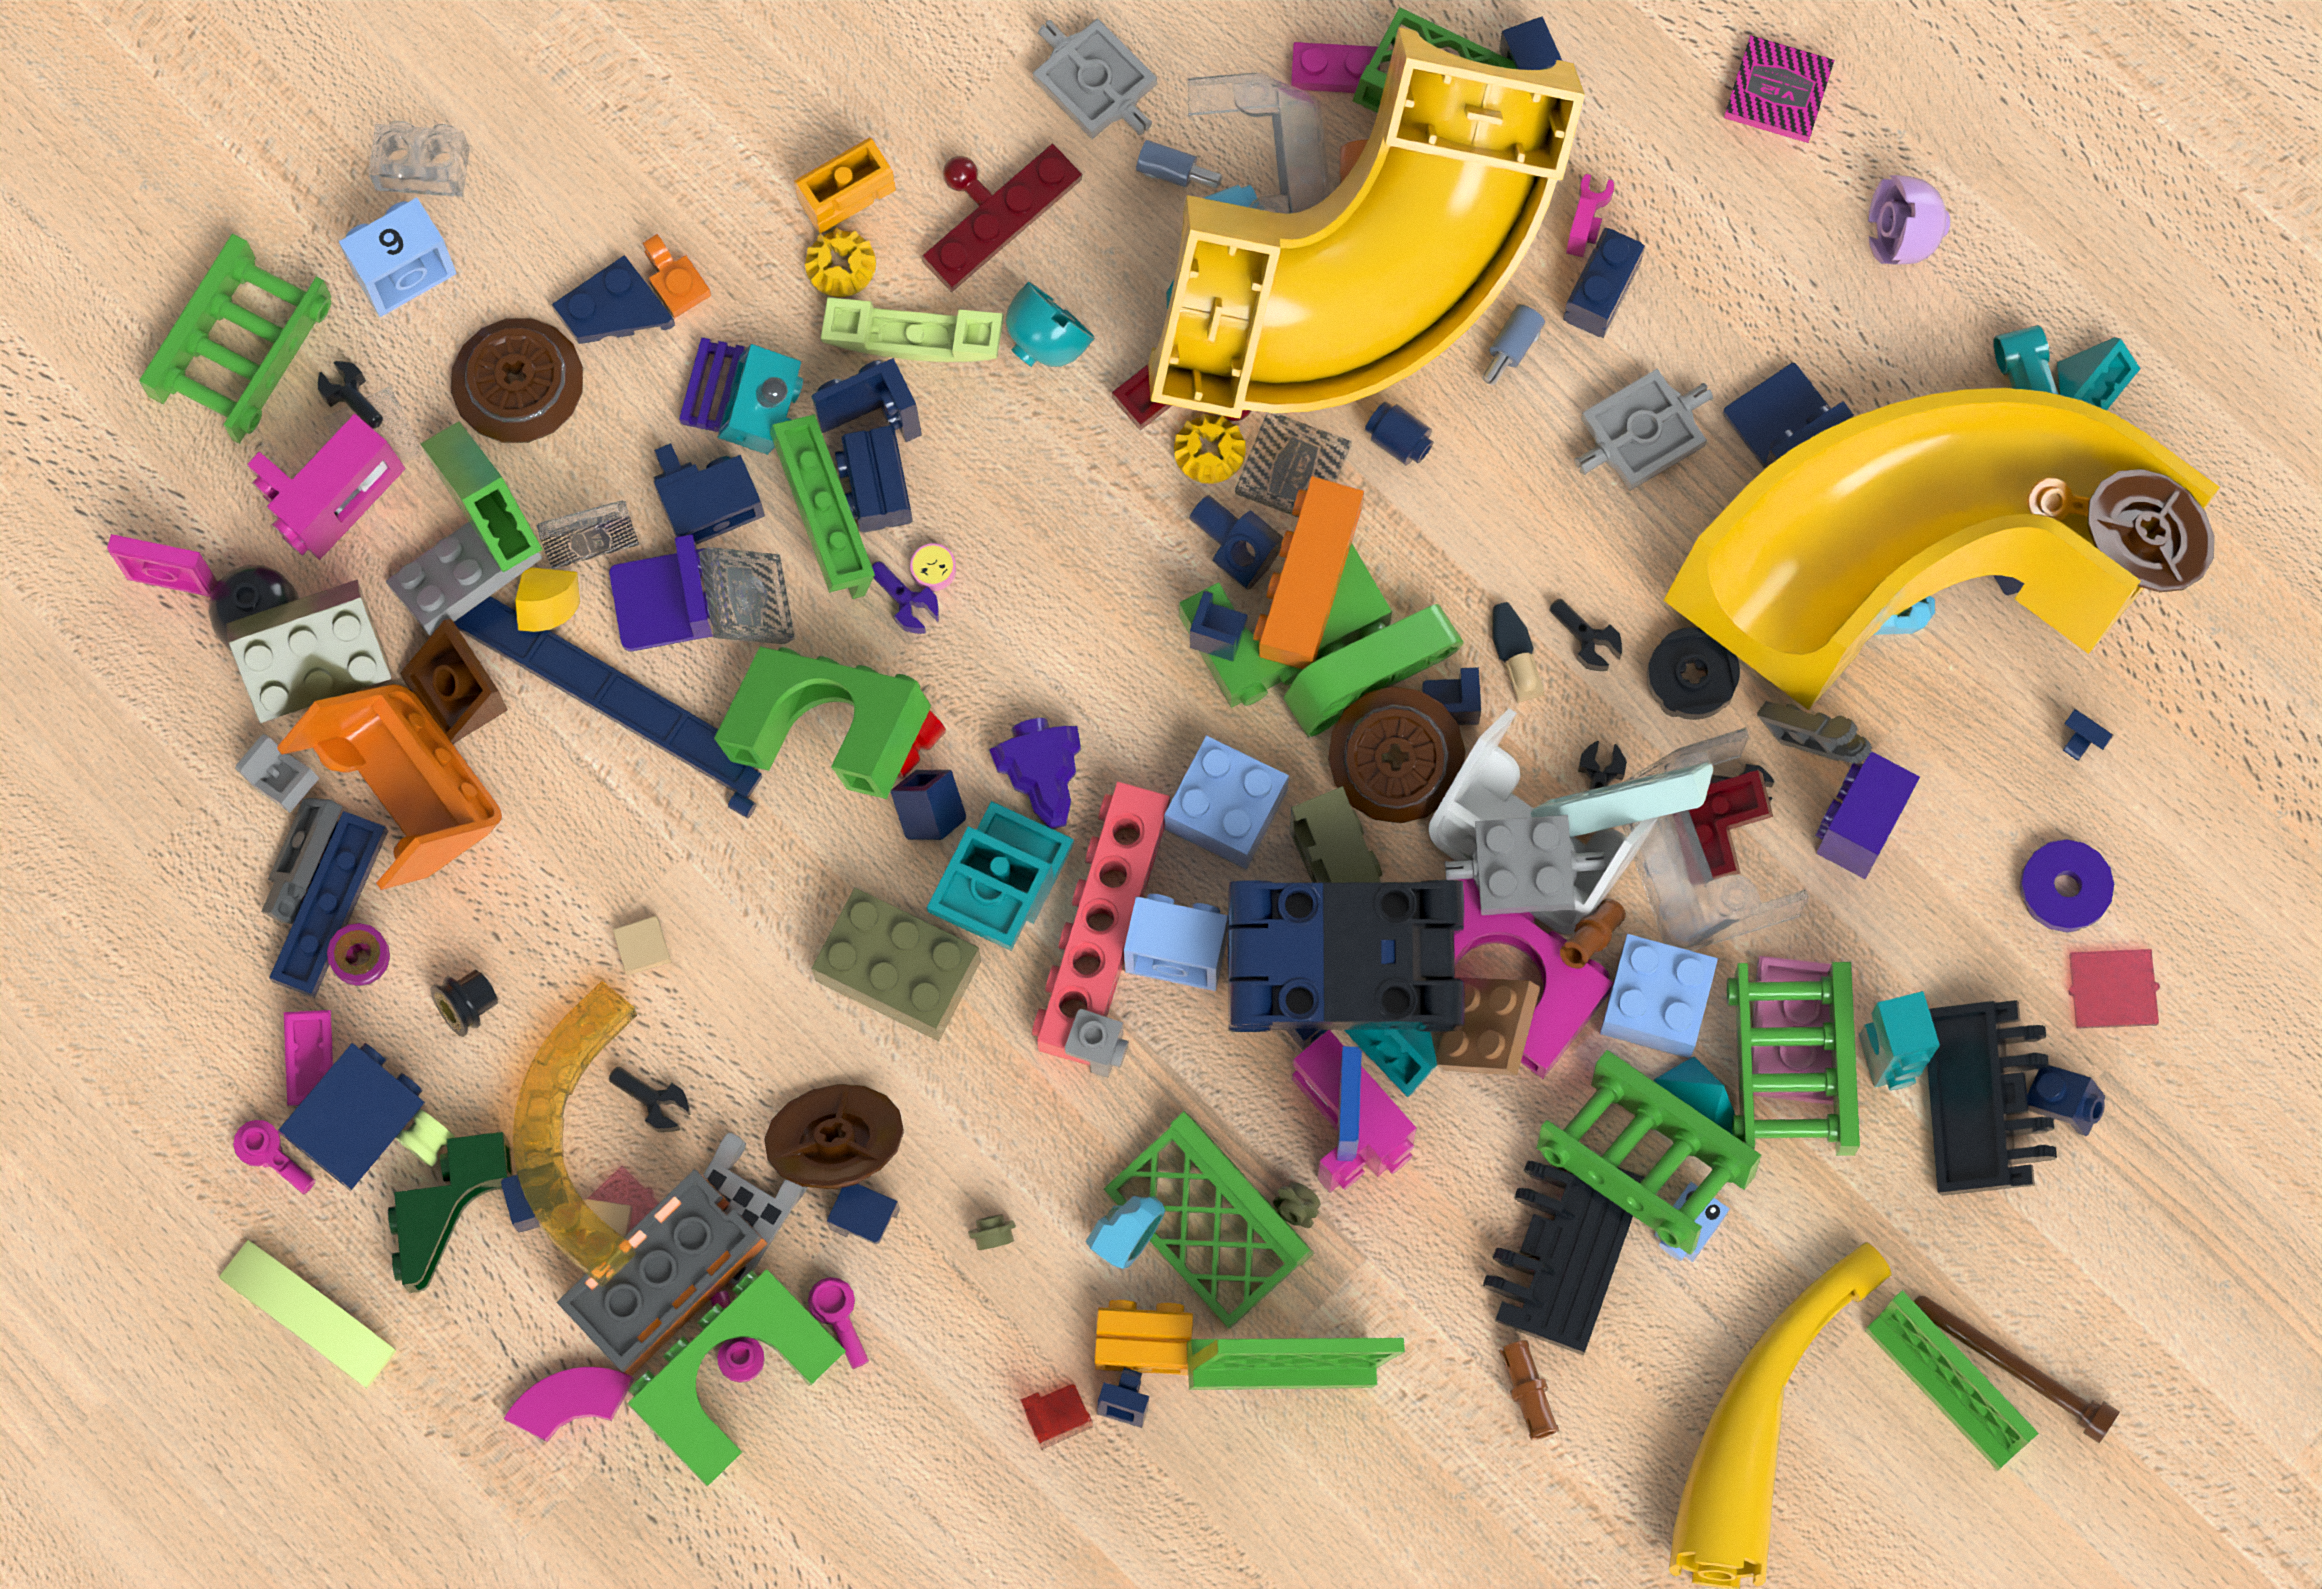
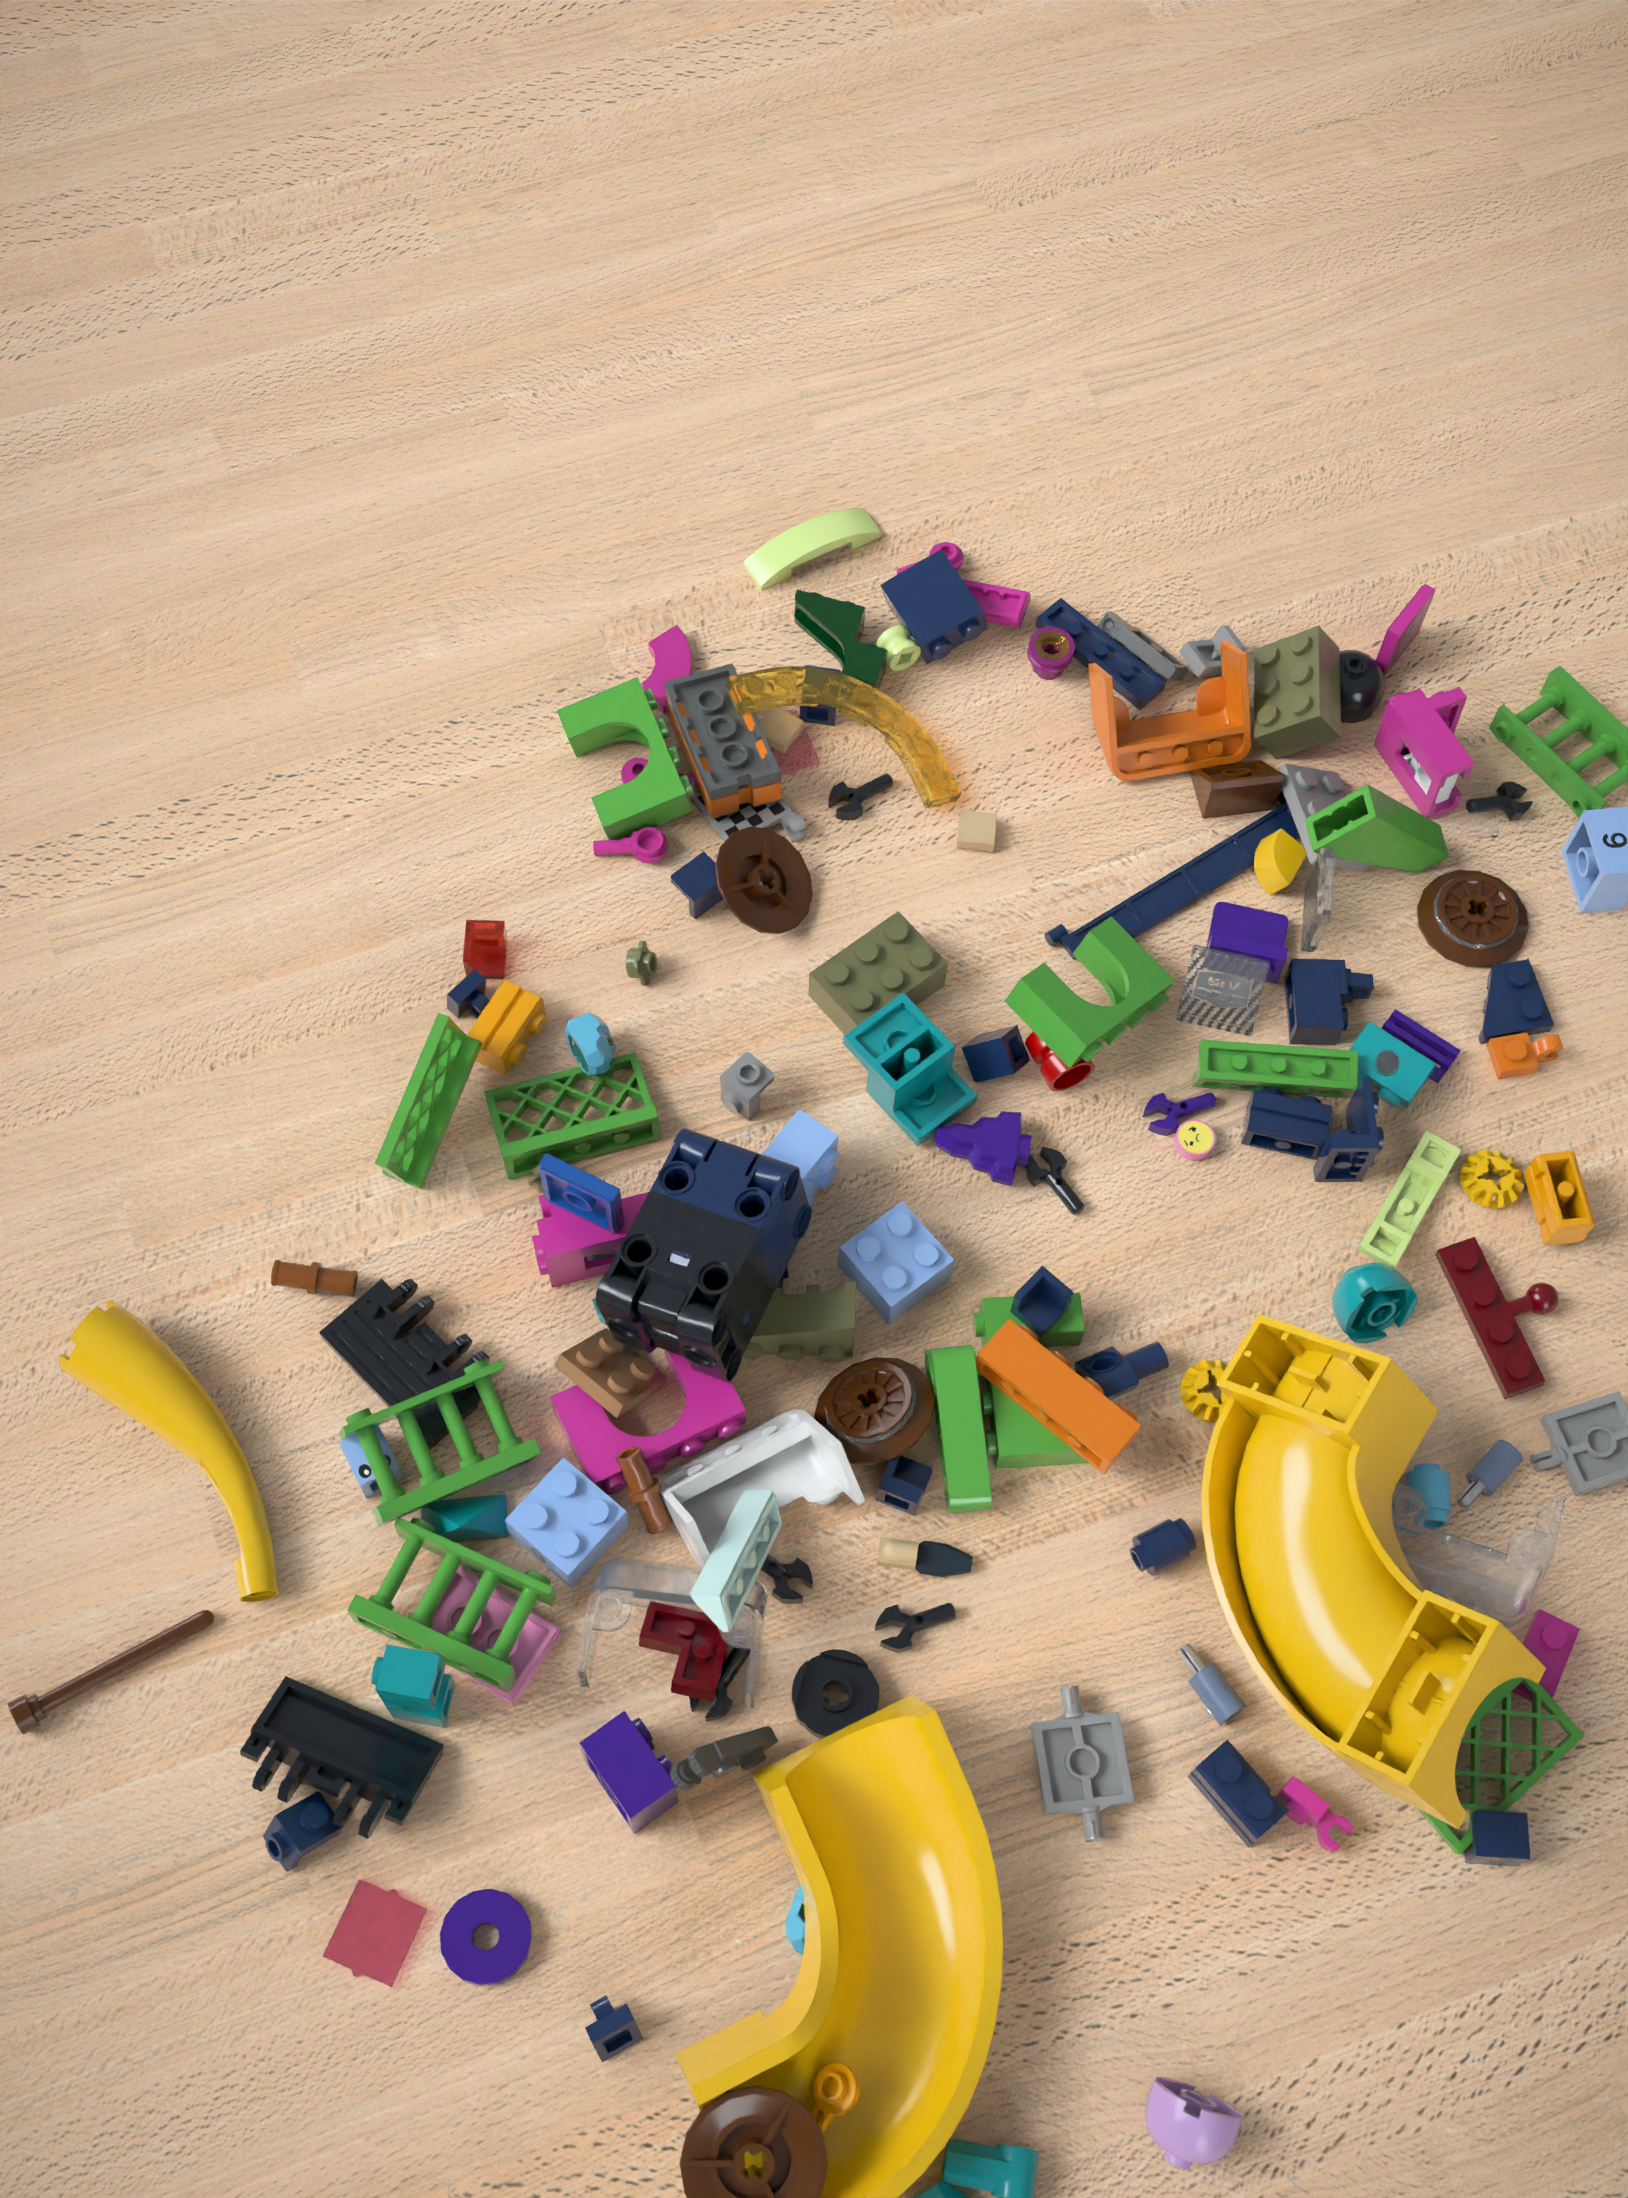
camera: 110 degrees right, 10 degrees down
(464, 1000) = (986, 702): black piece -> none
(1047, 688) = (1054, 1178): none -> black bar
(1126, 808) = (867, 1136): coral brick -> none
(1286, 458) = (1168, 1451): clear tile -> none
(1524, 865) = (724, 1454): light grey plate -> none
(1779, 89) = (1381, 2072): tile -> none
(1782, 414) = (1041, 1901): dark blue bracket -> none
(1951, 1381) = (124, 1602): bright green fence -> none

